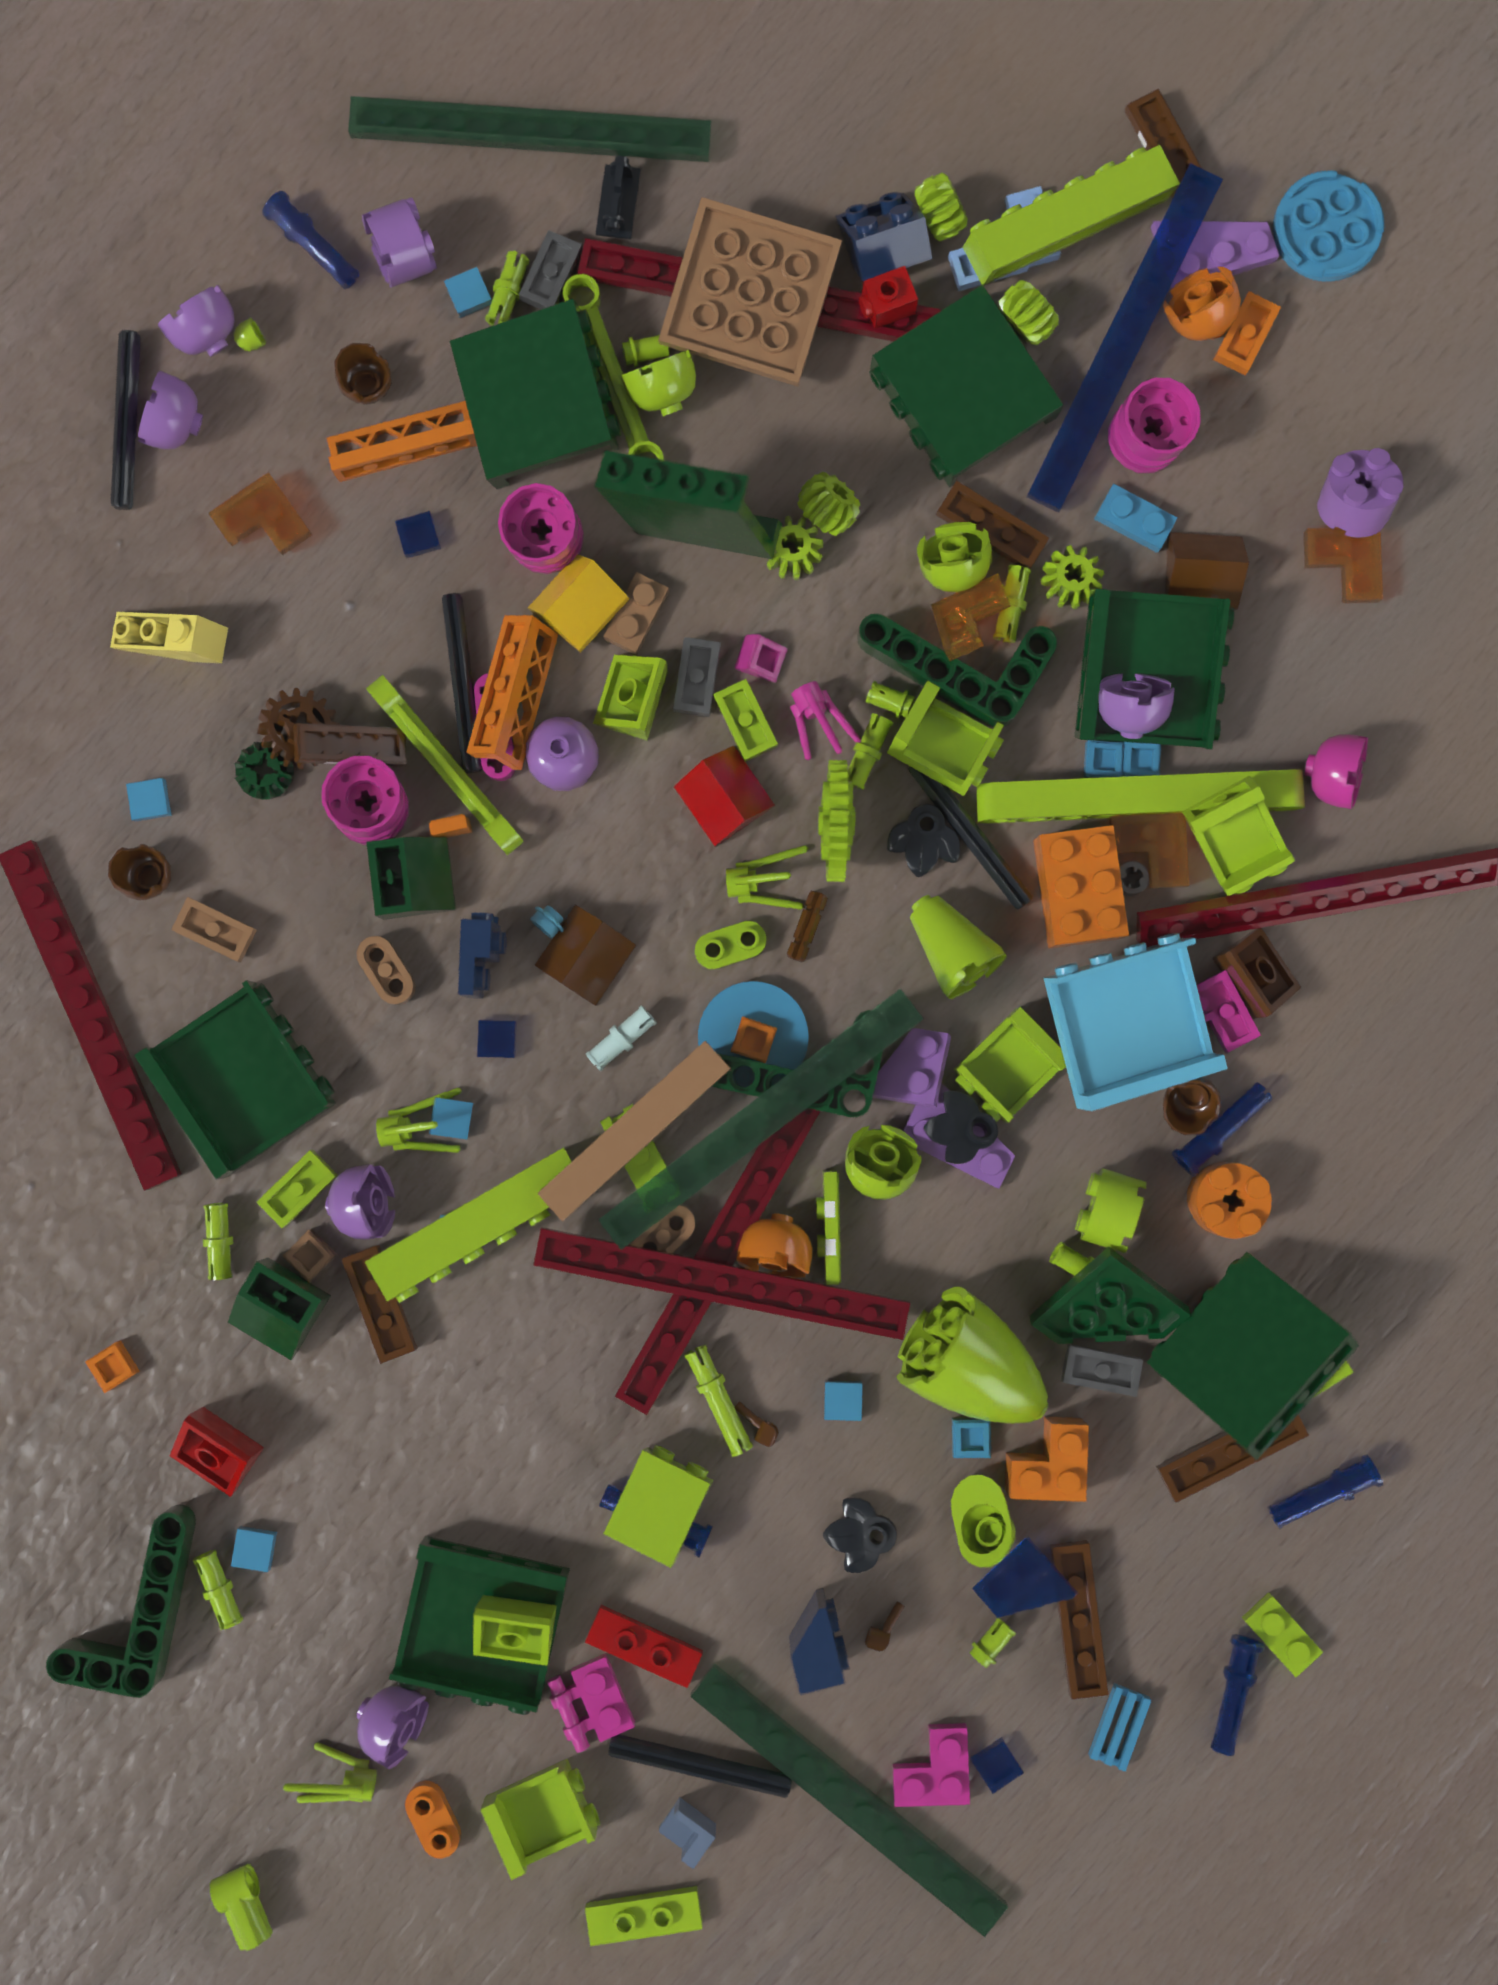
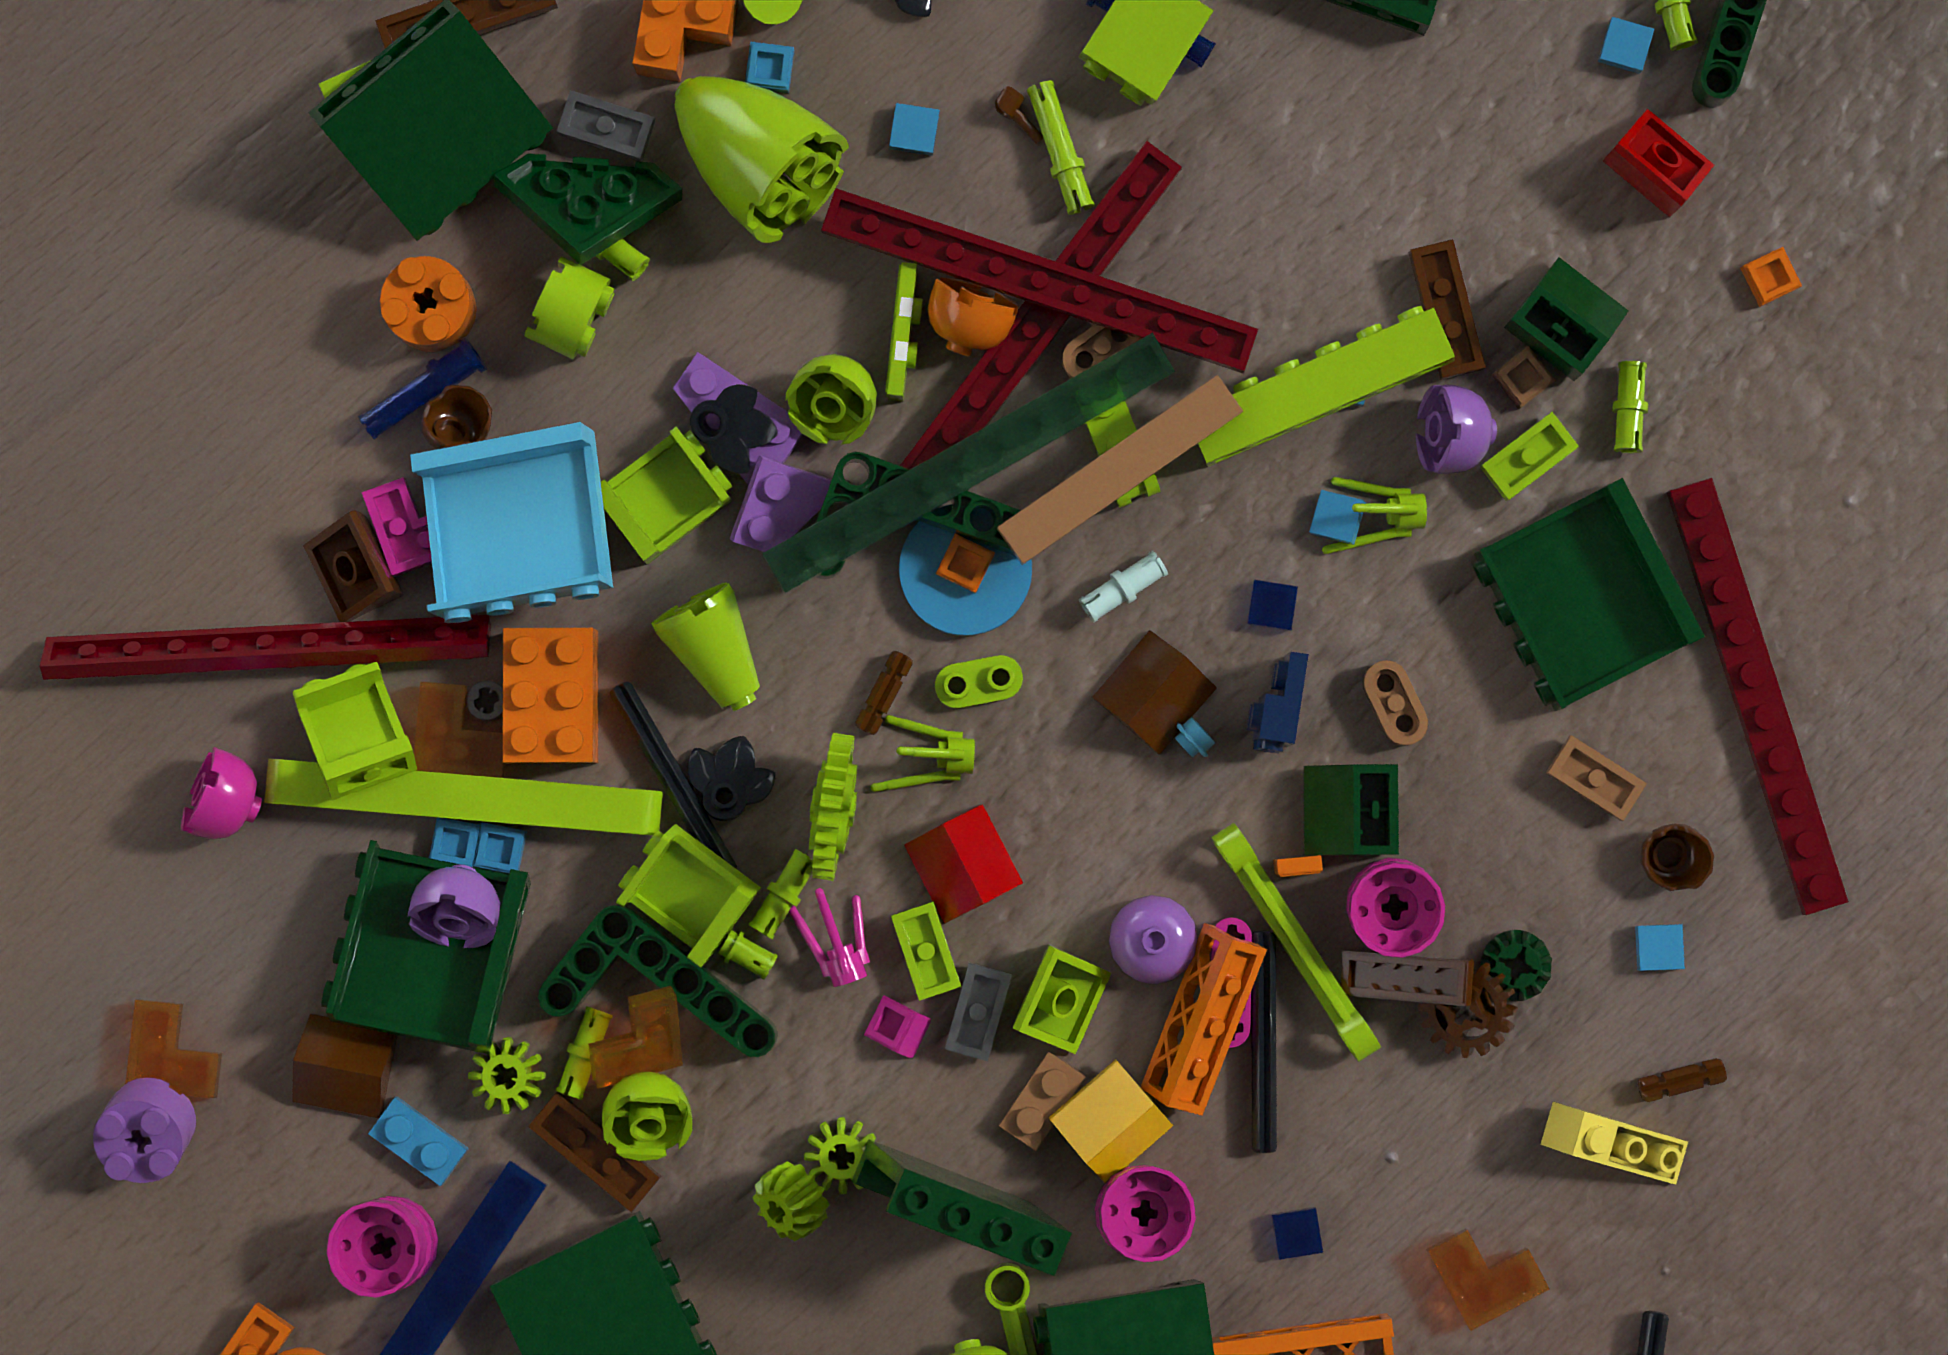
camera: 170 degrees left, 0 degrees up
(119, 695) = (1682, 1080): none -> reddish brown axle

